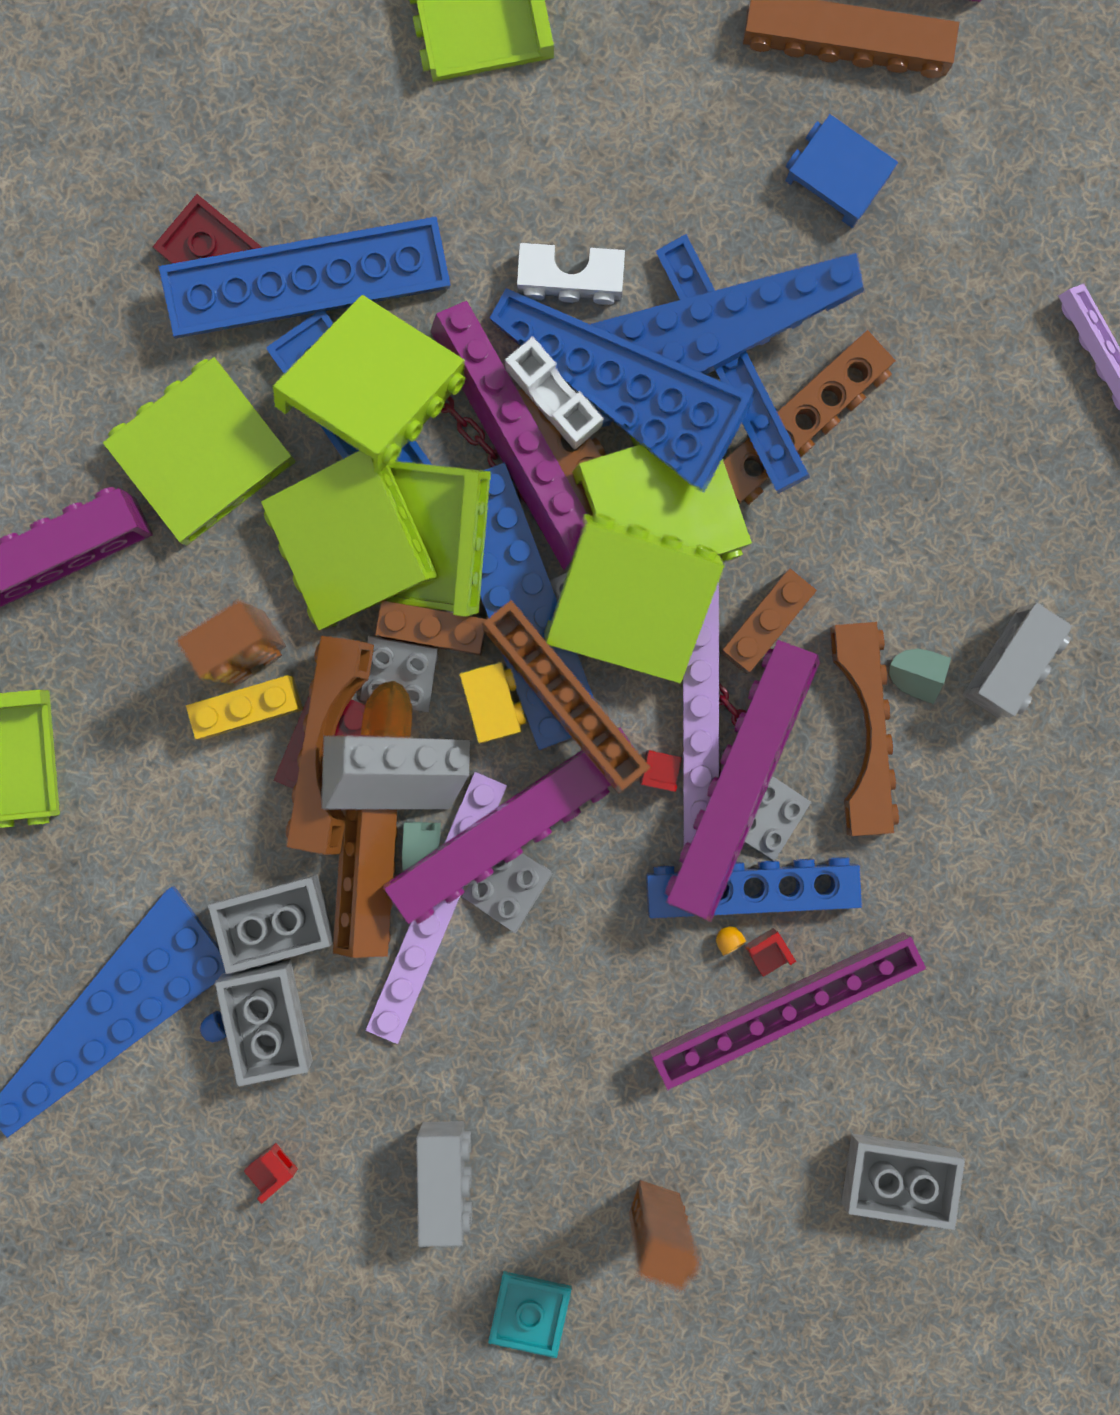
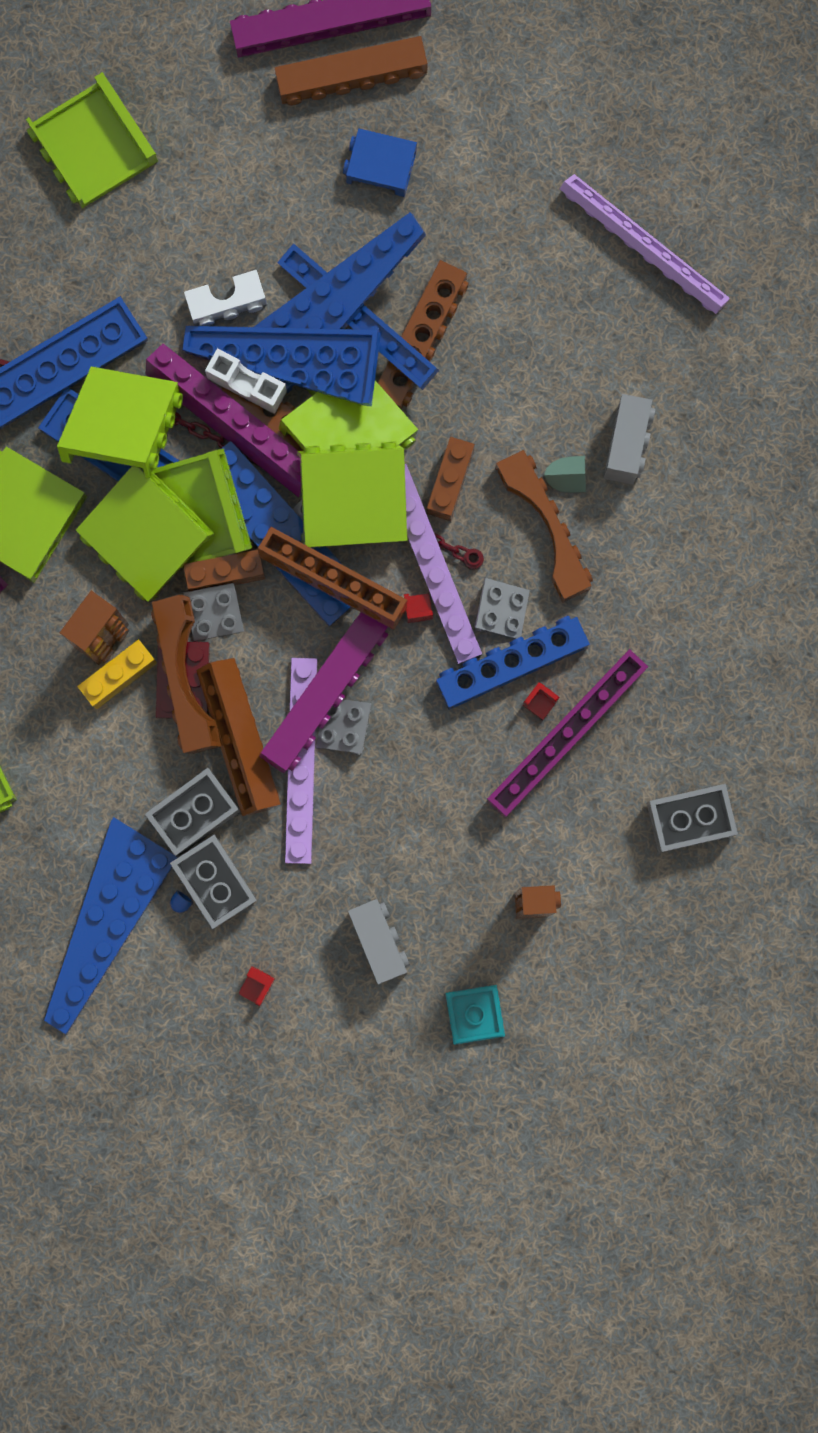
camera: 20 degrees left, 5 degrees down
(388, 712) = (216, 639): clear orange brick -> none
(393, 772) = (236, 674): light grey slope -> none
(419, 841) = (271, 718): sand green brick -> none
(492, 702) = (284, 603): yellow brick -> none
(729, 939) = (510, 704): light orange hinge -> none
(743, 780) = (475, 589): magenta brick -> none

